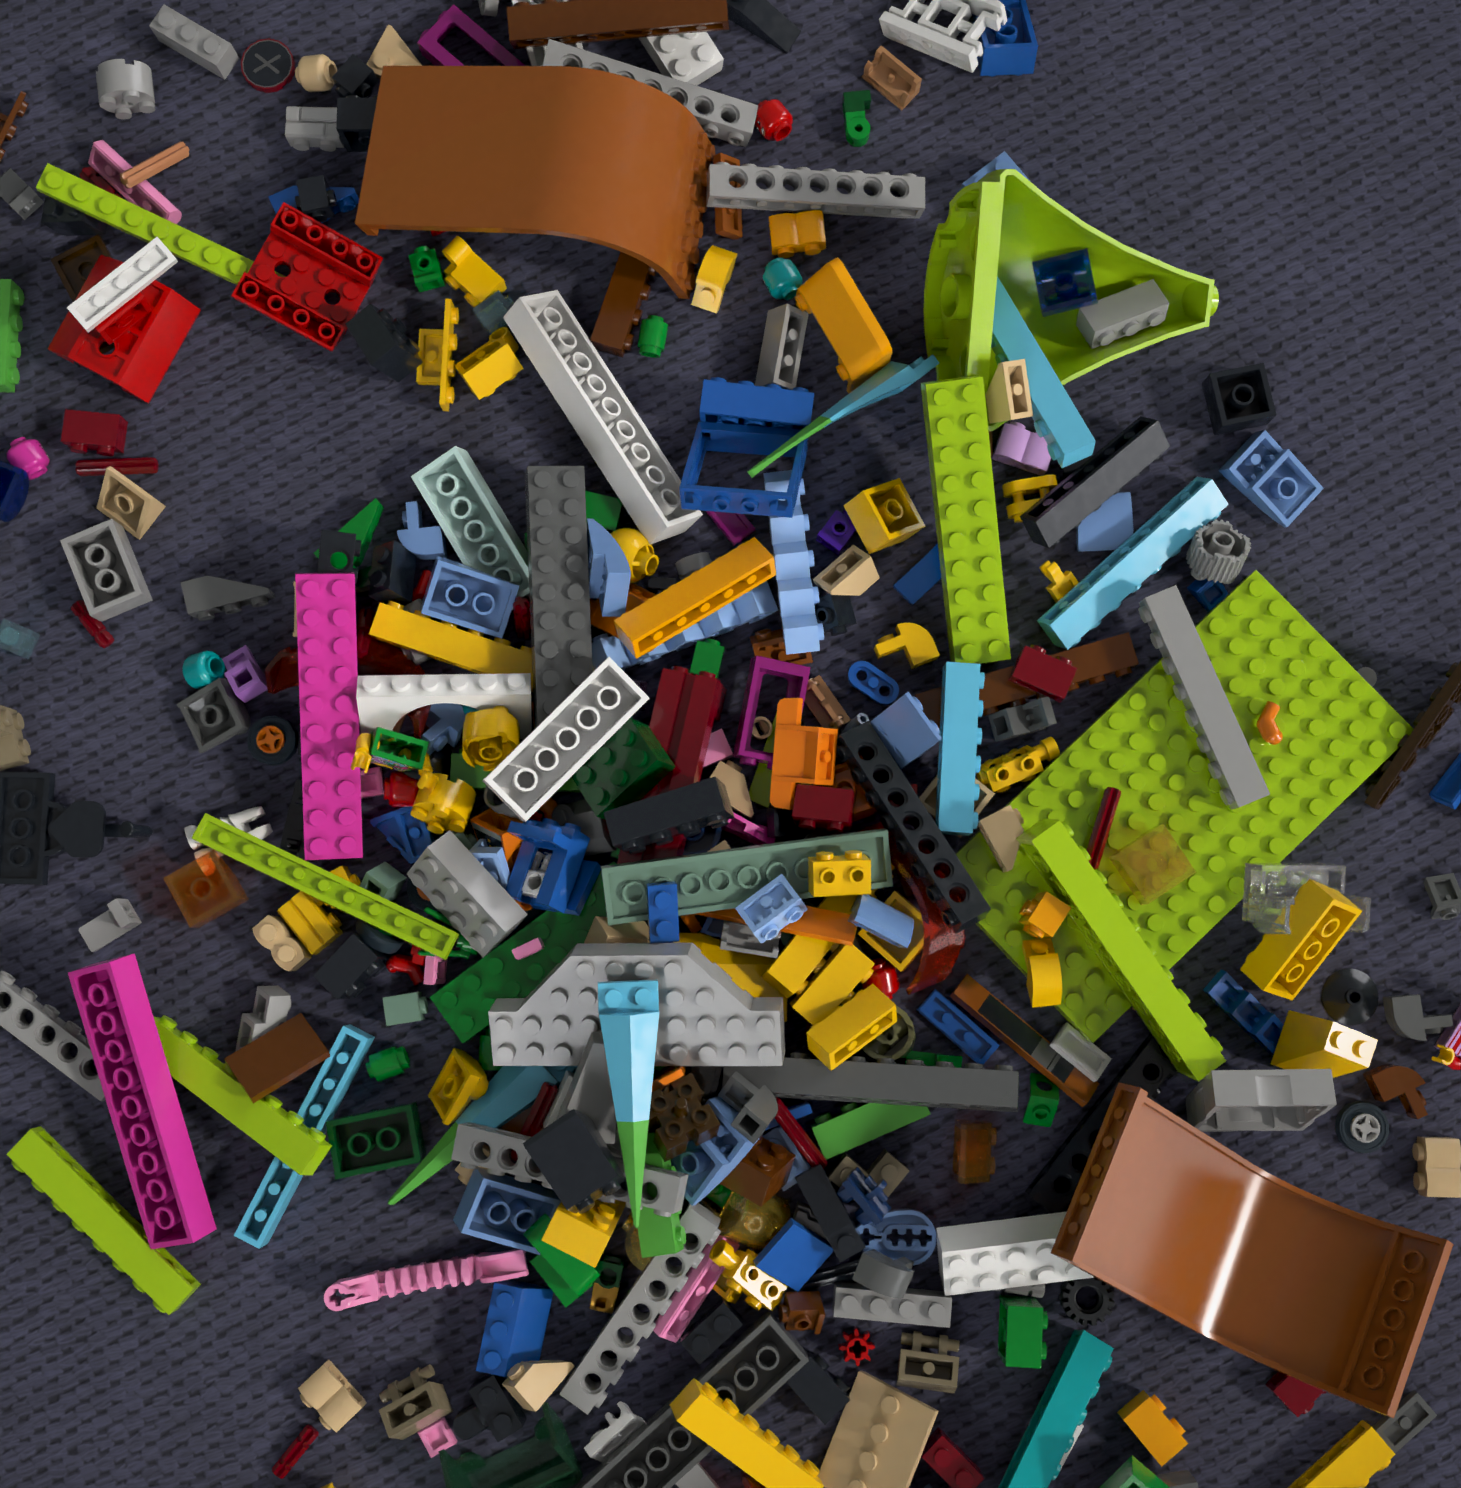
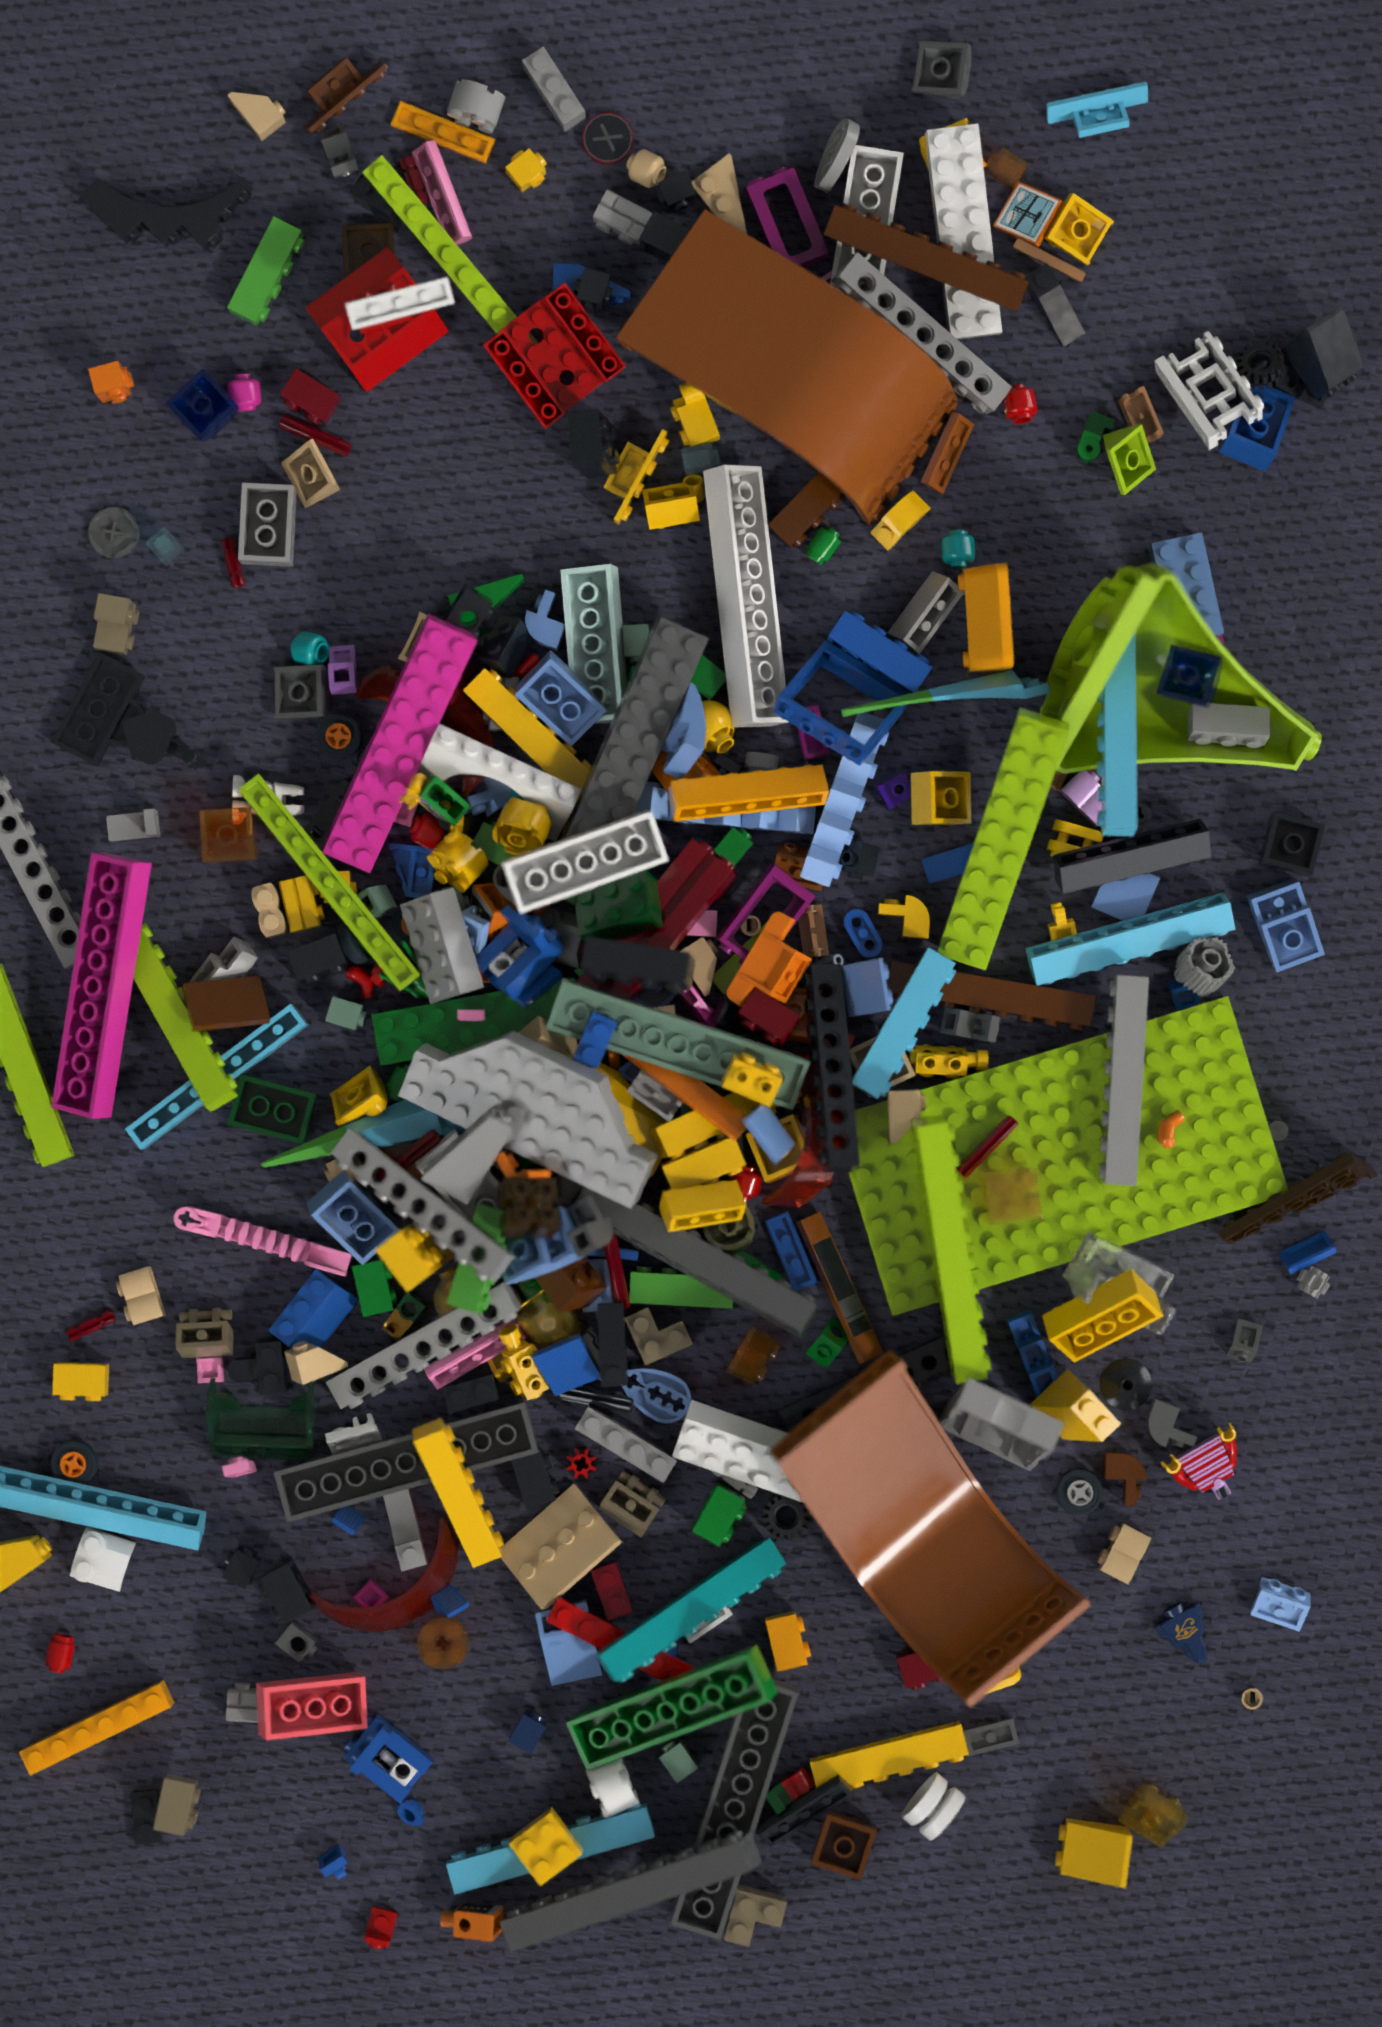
camera: 25 degrees right, 5 degrees up
(114, 131) = (444, 132): none -> light orange tile
(154, 164) = (469, 186): nougat axle -> none
(203, 127) = (526, 169): none -> yellow brick
(214, 595) = (346, 588): dark grey slope -> none
(388, 1063) = (310, 1051): green brick -> none
(430, 276) = (655, 399): green brick -> none
(435, 970) = (384, 994): bright pink tile -> none
(514, 509) = (634, 640): none -> sand green brick
(522, 617) = (596, 736): dark red axle -> none
(572, 1270) = (383, 1281): green beam -> none
(575, 1161) = (432, 1201): black slope -> none
(629, 1035) = (521, 1125): medium azure plate -> none
(771, 909) = (684, 1080): light blue bracket -> none
(797, 233) = (990, 515): light orange brick -> none
(802, 1311) = (551, 1413): reddish brown brick -> none
(803, 198) = (940, 453): light grey brick -> none
(848, 574) = (886, 832): tan slope -> none
(867, 1195) = (648, 1344): dark blue hips -> none
(884, 1274) = (632, 1414): dark grey brick -> none
(899, 116) = (1129, 456): none -> lime slope
(1009, 393) = (1088, 752): tan slope -> none
(1043, 673) = (1004, 995): dark red piece -> none
(1043, 915) = (901, 1192): light orange brick -> none
(1043, 972) = (878, 1238): yellow brick -> none
(1080, 1052) = (880, 1320): white tile -> none

